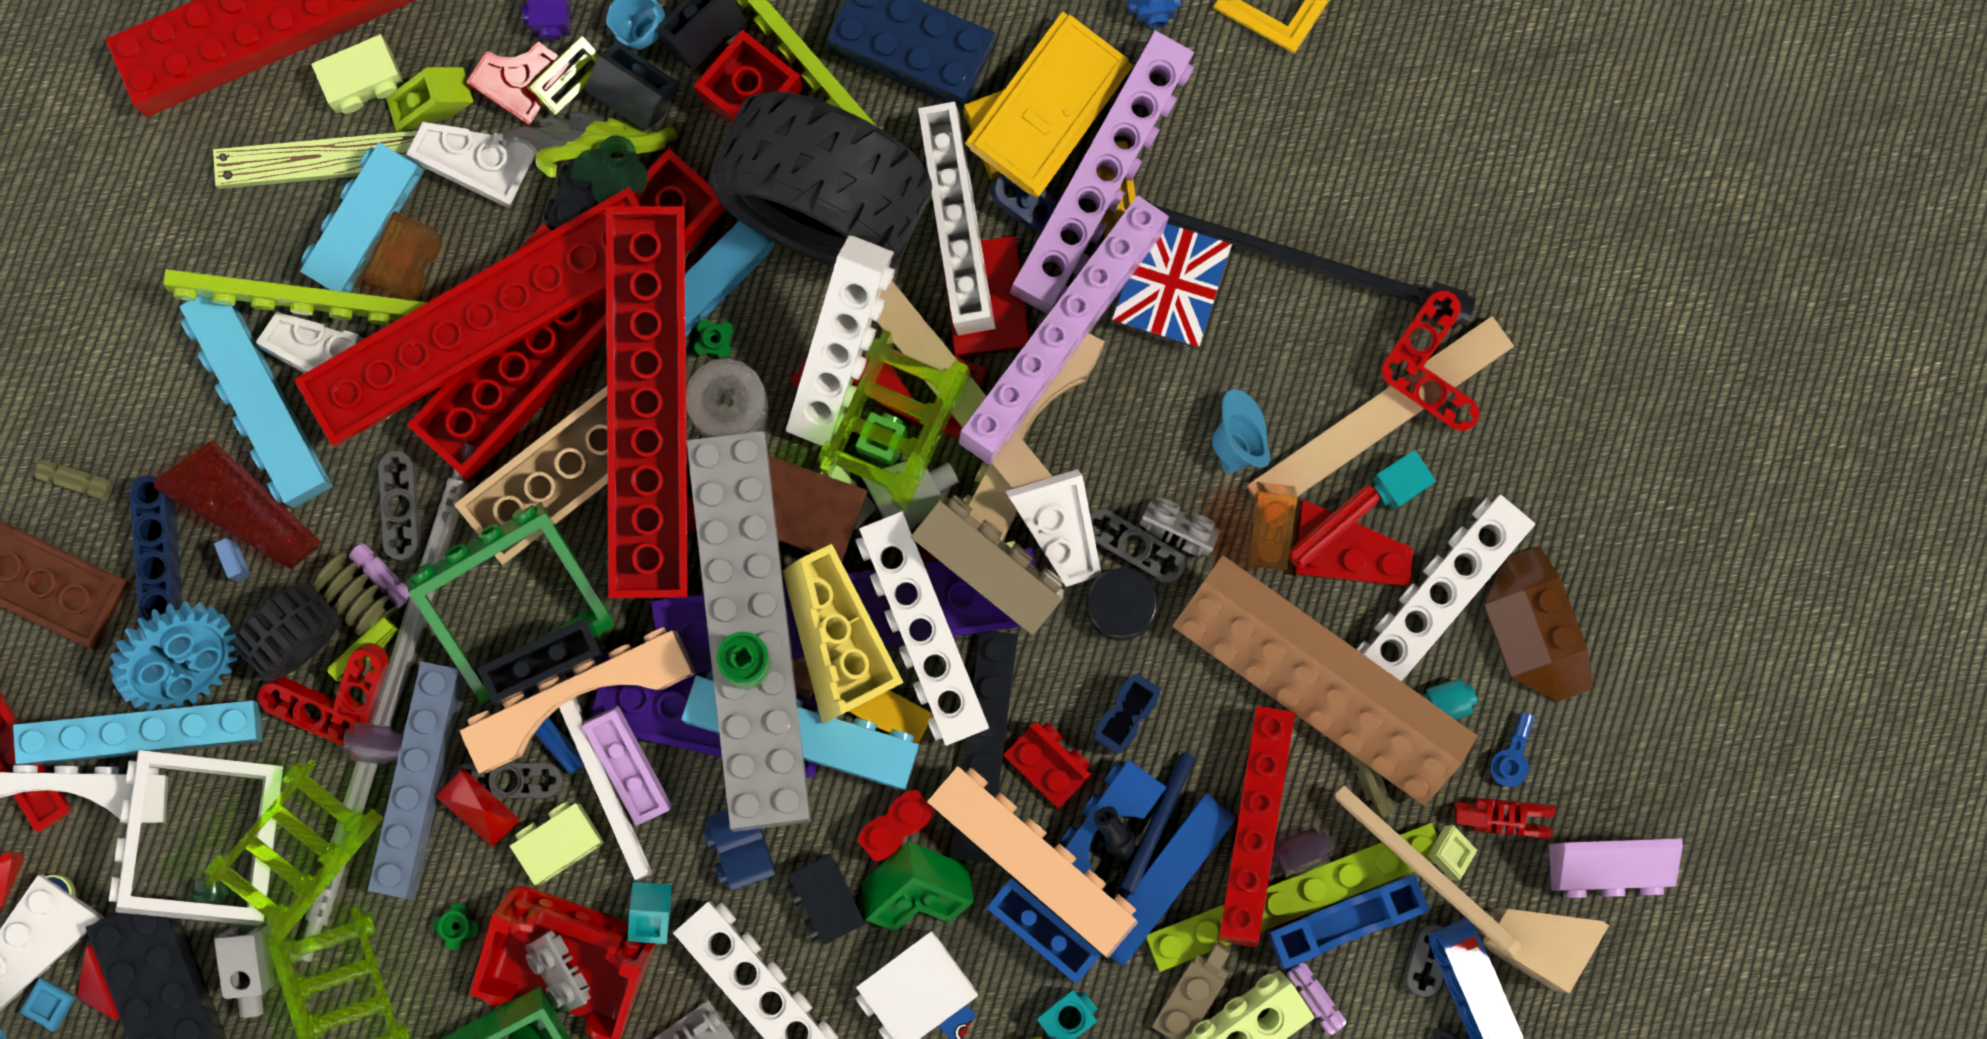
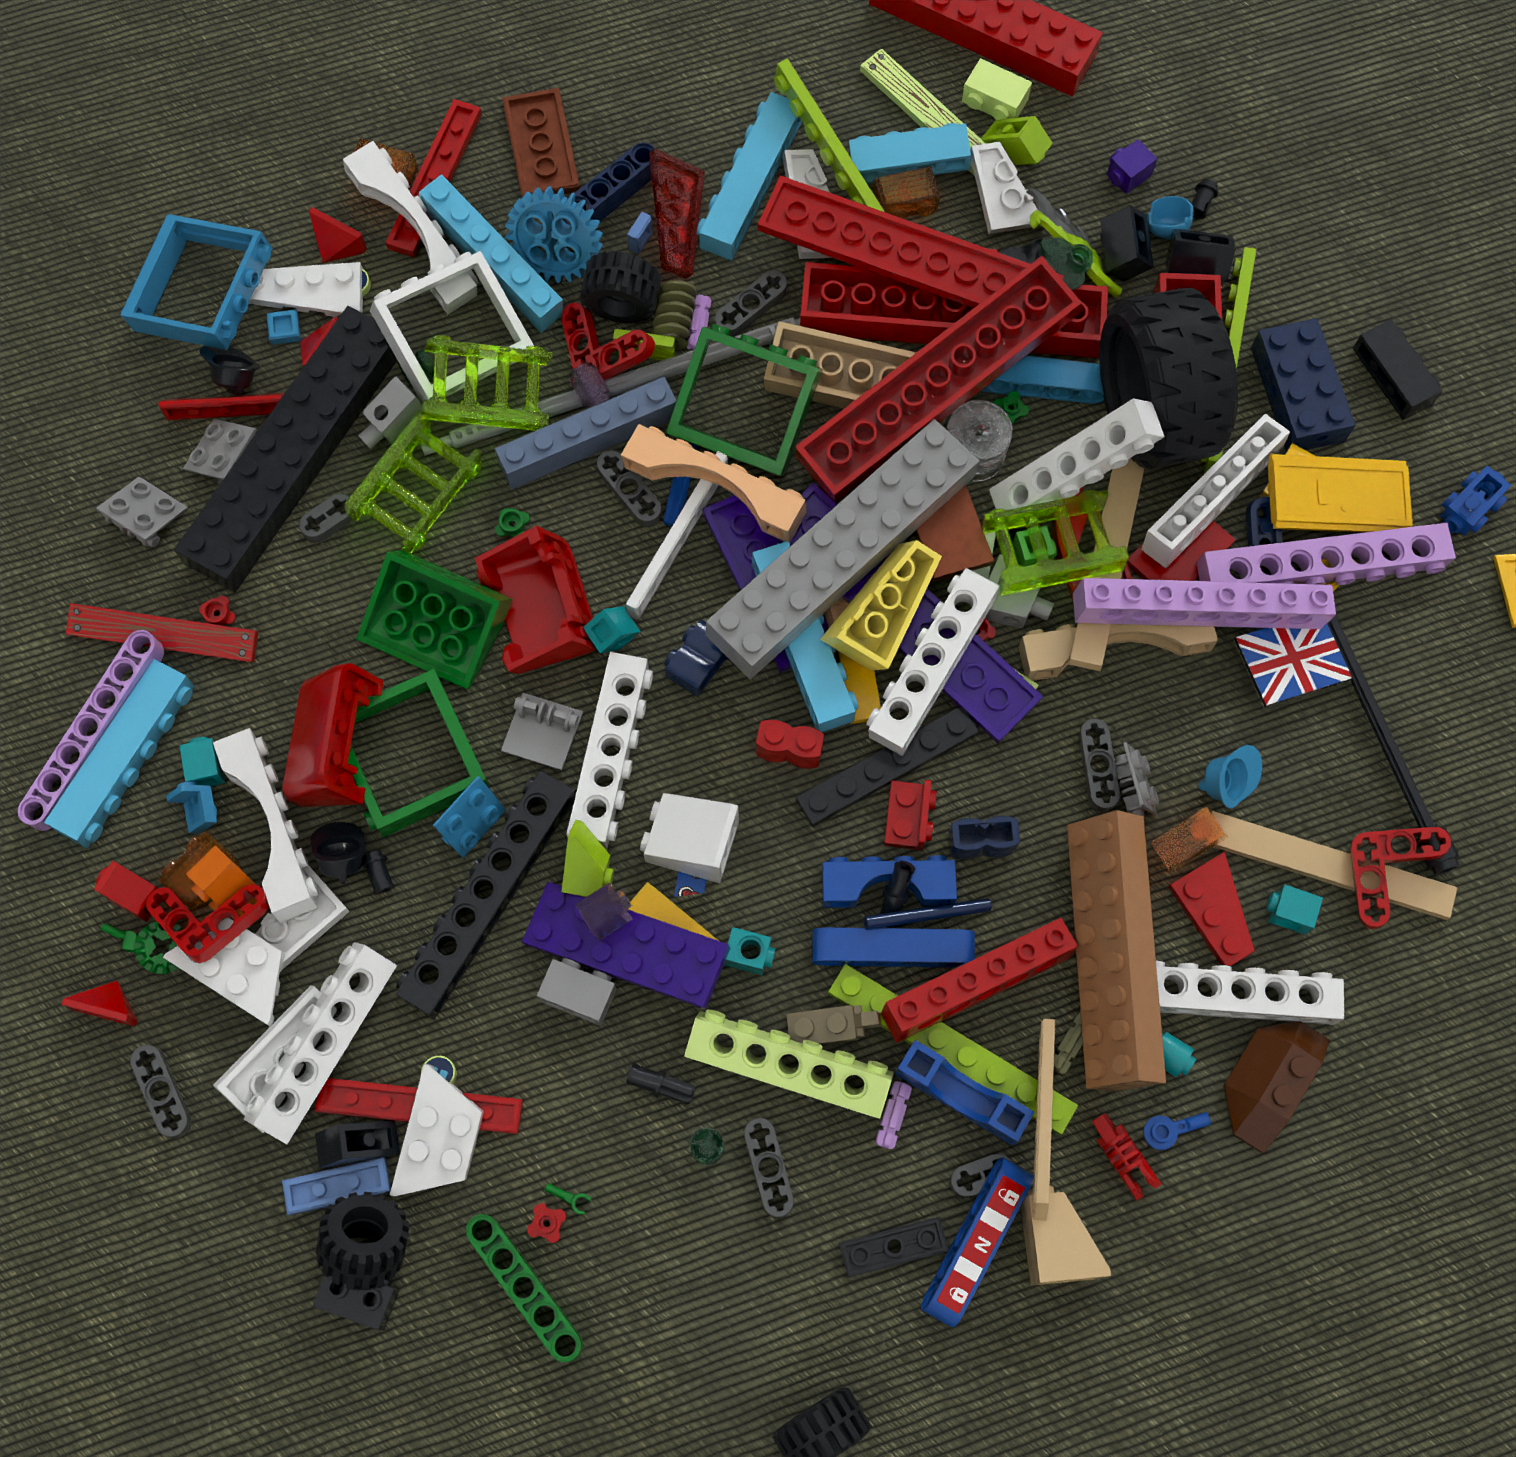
camera: 55 degrees right, 10 degrees down
(72, 479) = (617, 115): olive axle -> none
(477, 807) = (598, 480): red slope -> none
(507, 78) = (1071, 181): tile -> none
(541, 661) = (722, 438): black brick -> none
(545, 96) = (1075, 202): tile -> none
(557, 843) = (612, 544): yellowish green brick -> none
(562, 988) = (532, 585): light grey hinge -> none
(626, 765) = (695, 548): lavender plate -> none
(743, 660) = (822, 544): green wheel -> none
(826, 900) = (706, 736): black brick -> none
(915, 882) = (764, 784): green panel -> none
(989, 564) = (1010, 668): dark tan brick -> none
(1034, 862) = (837, 844): light nougat brick -> none
(1044, 930) = (795, 889): blue brick -> none
(1061, 524) = (1074, 699): white wing -> none
(1121, 604) = (1054, 783): black head -> none
(1303, 852) = (986, 1029): brick -> none
(1333, 526) = (1224, 883): red axle -> none
(1452, 852) = (1069, 1134): yellowish green tile -> none
(1614, 866) = (1155, 1258): lavender slope -> none

